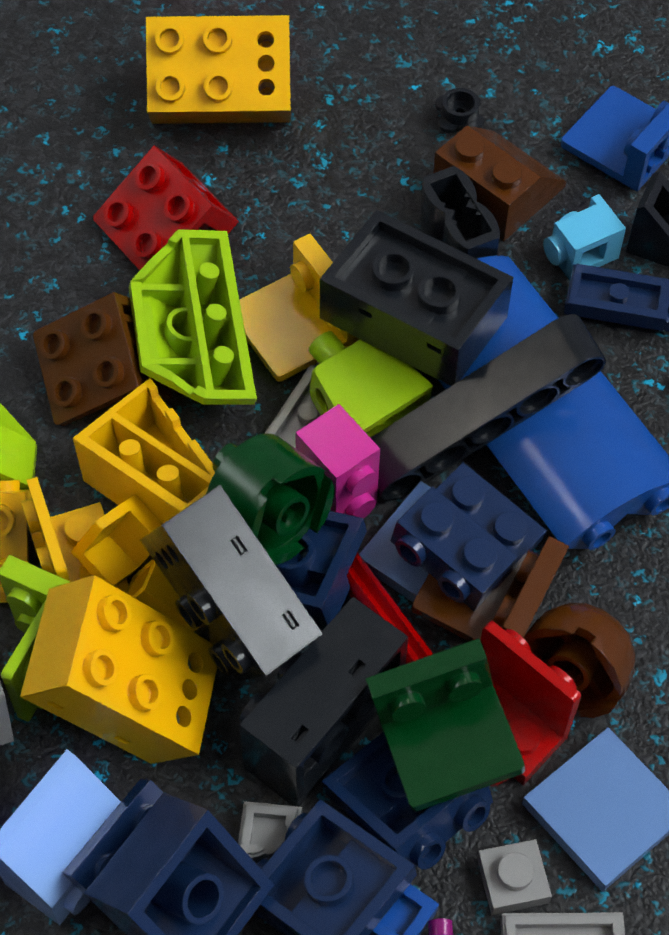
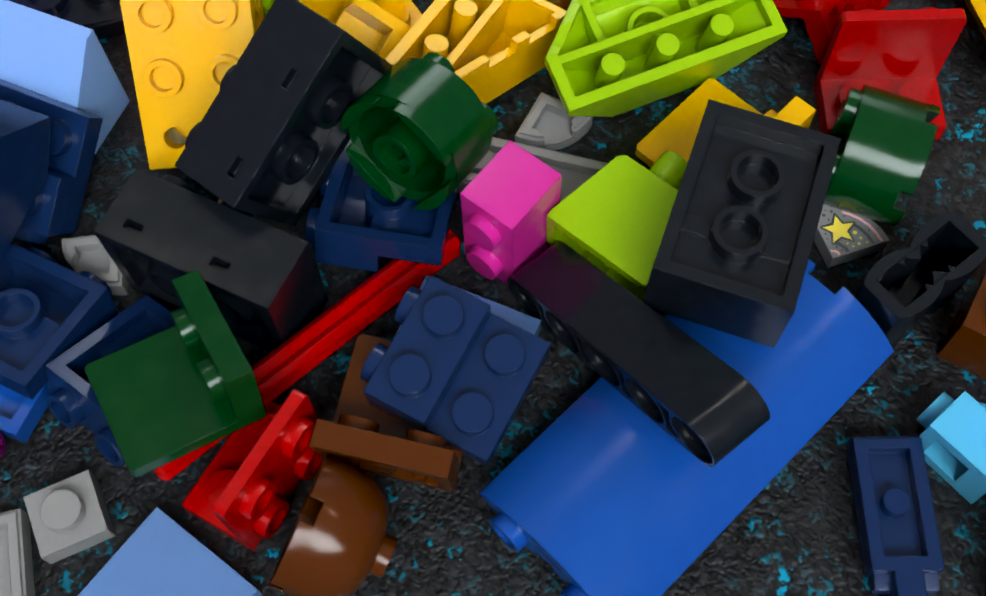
camera: 80 degrees right, 5 degrees up
(226, 428) = (549, 125): none -> light grey tile
(276, 194) = (889, 52): none -> red bracket
(343, 201) = (879, 152): none -> dark green brick

